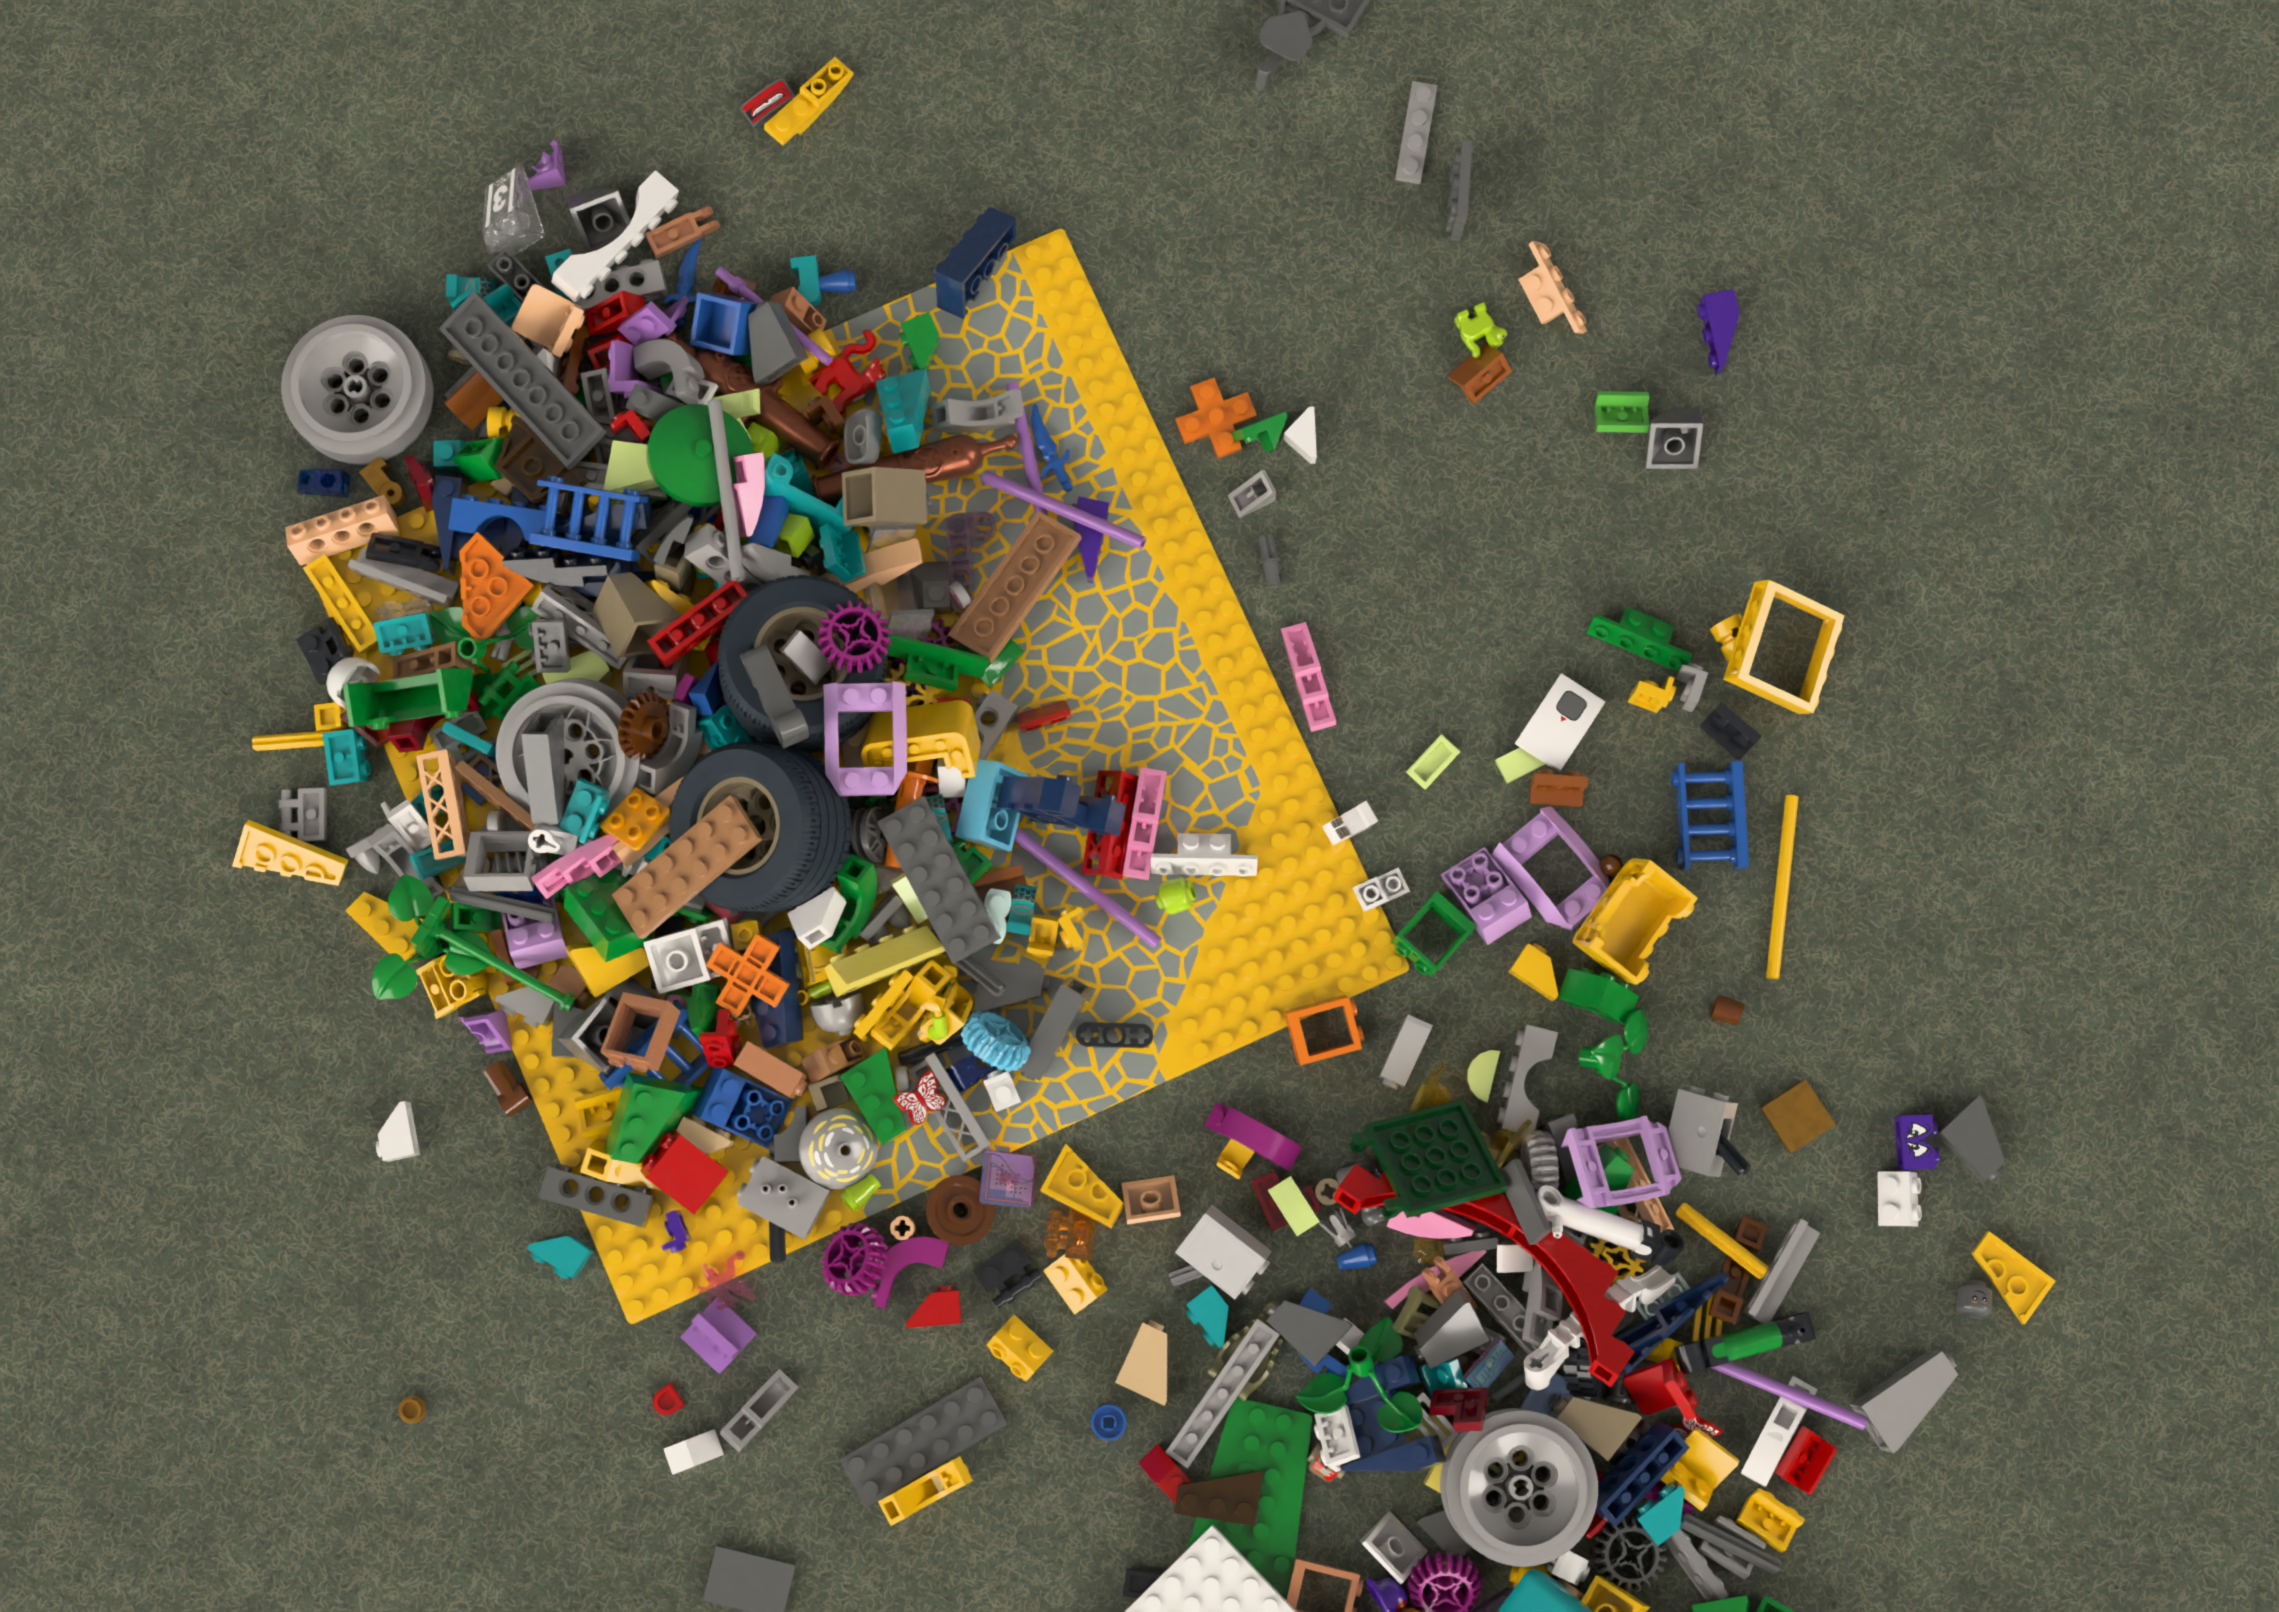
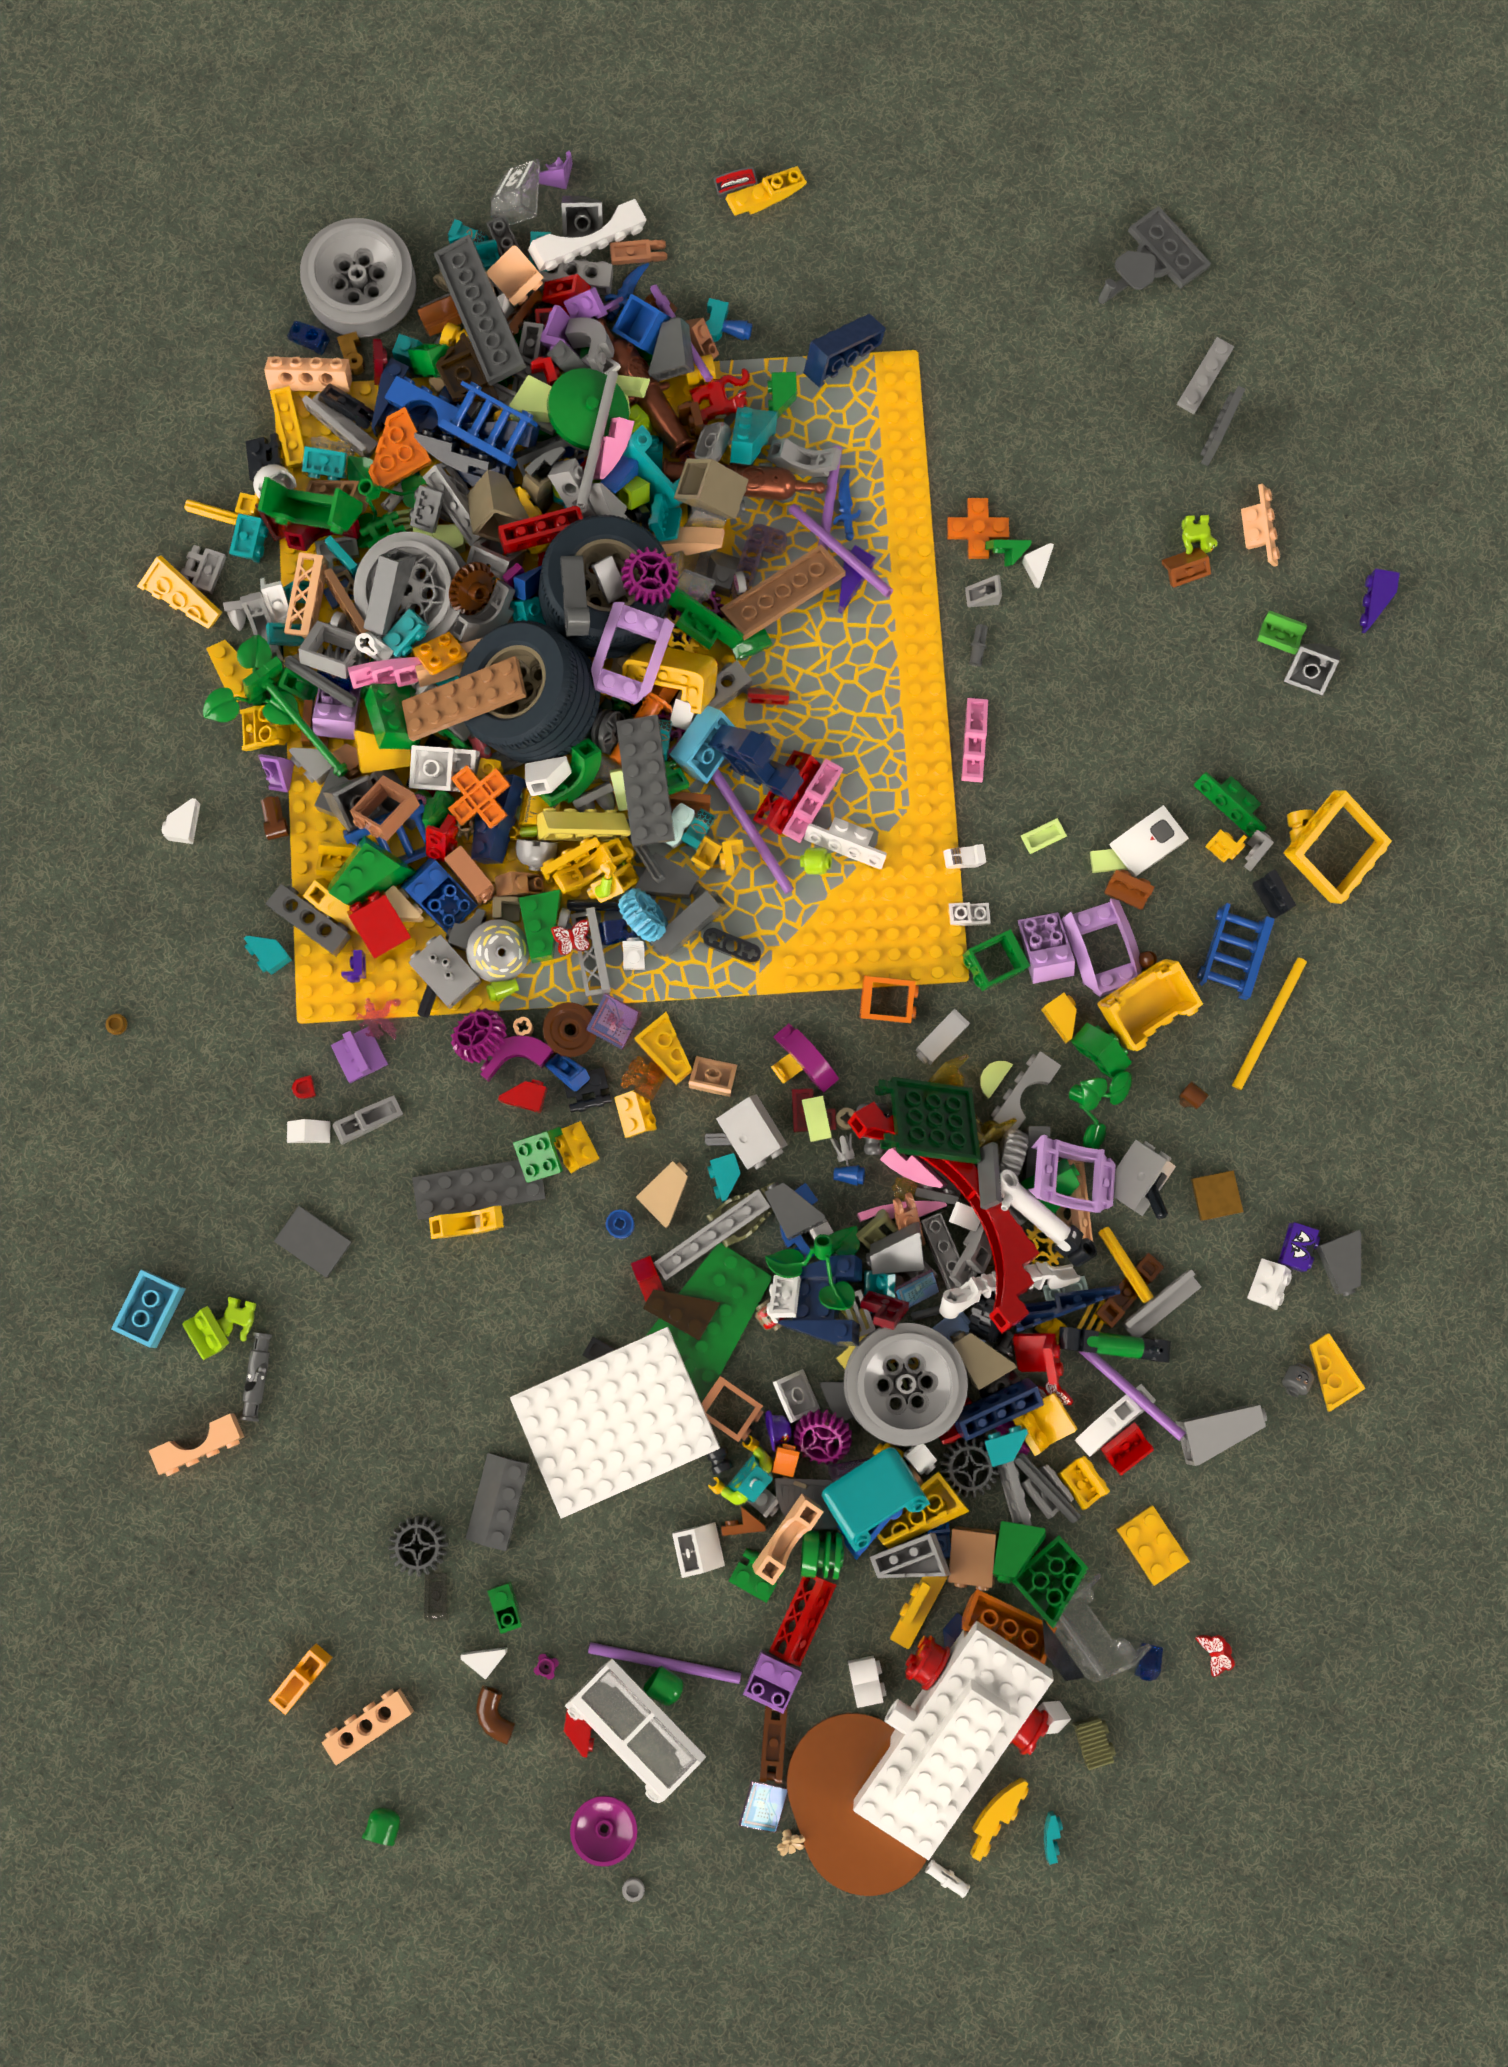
camera: 15 degrees right, 0 degrees up
(977, 1261) = (568, 1071): none -> blue slope
(980, 1375) = (538, 1155): none -> bracket
(1878, 1562) = (1152, 1545): none -> yellow plate

